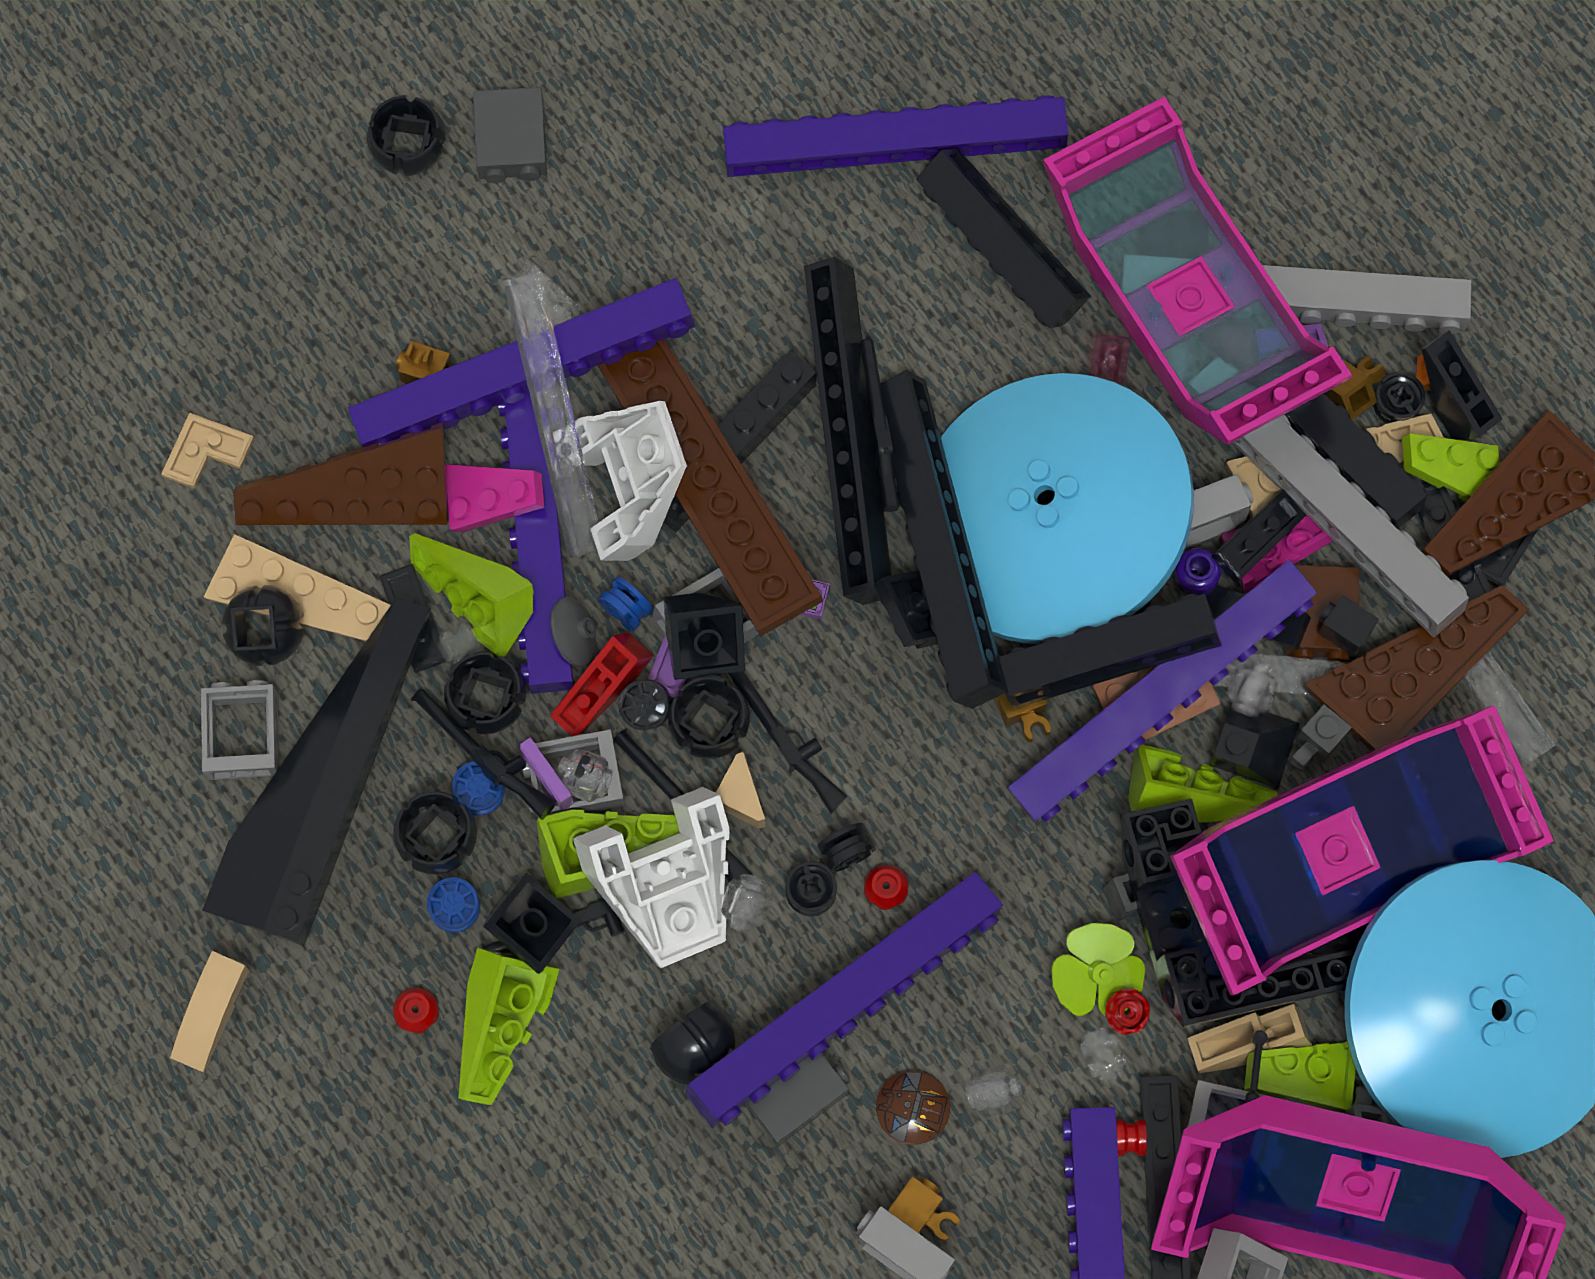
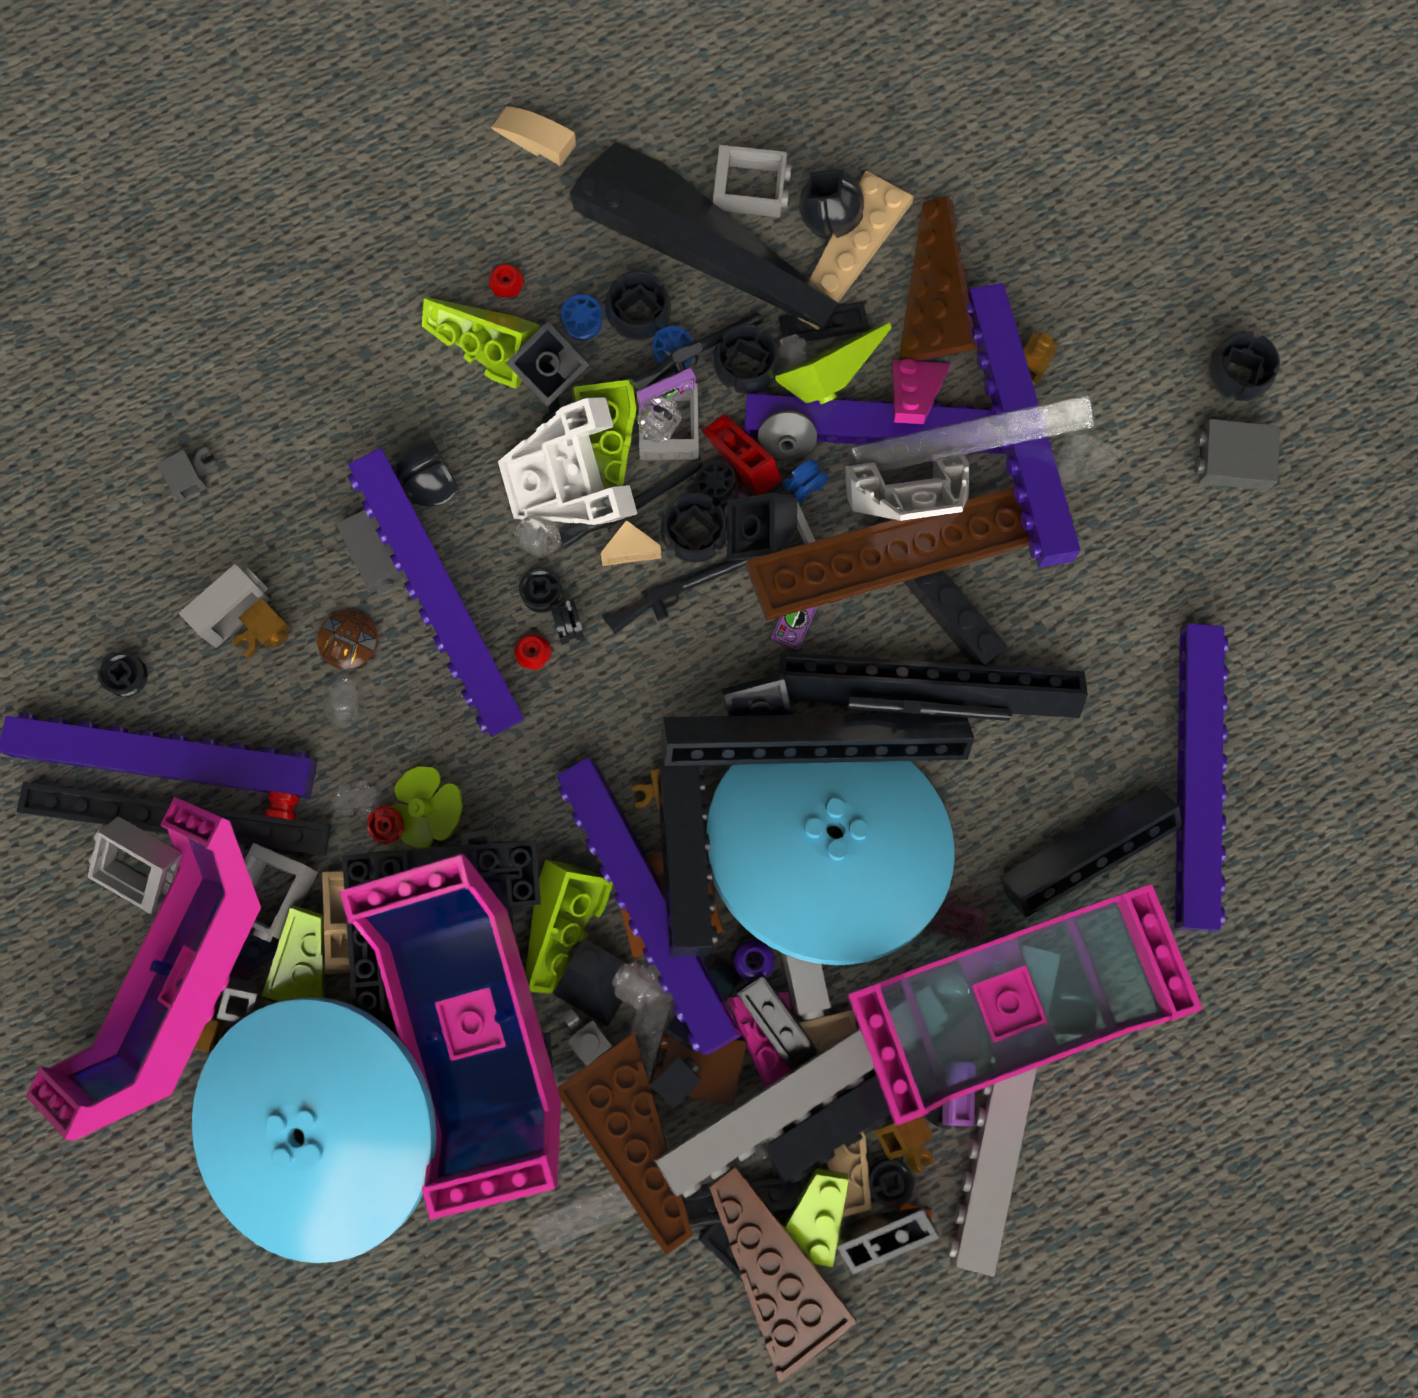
camera: 95 degrees right, 5 degrees up
(199, 442) = (996, 187): tan tile -> none
(1259, 1039) = (328, 925): black hinge -> none

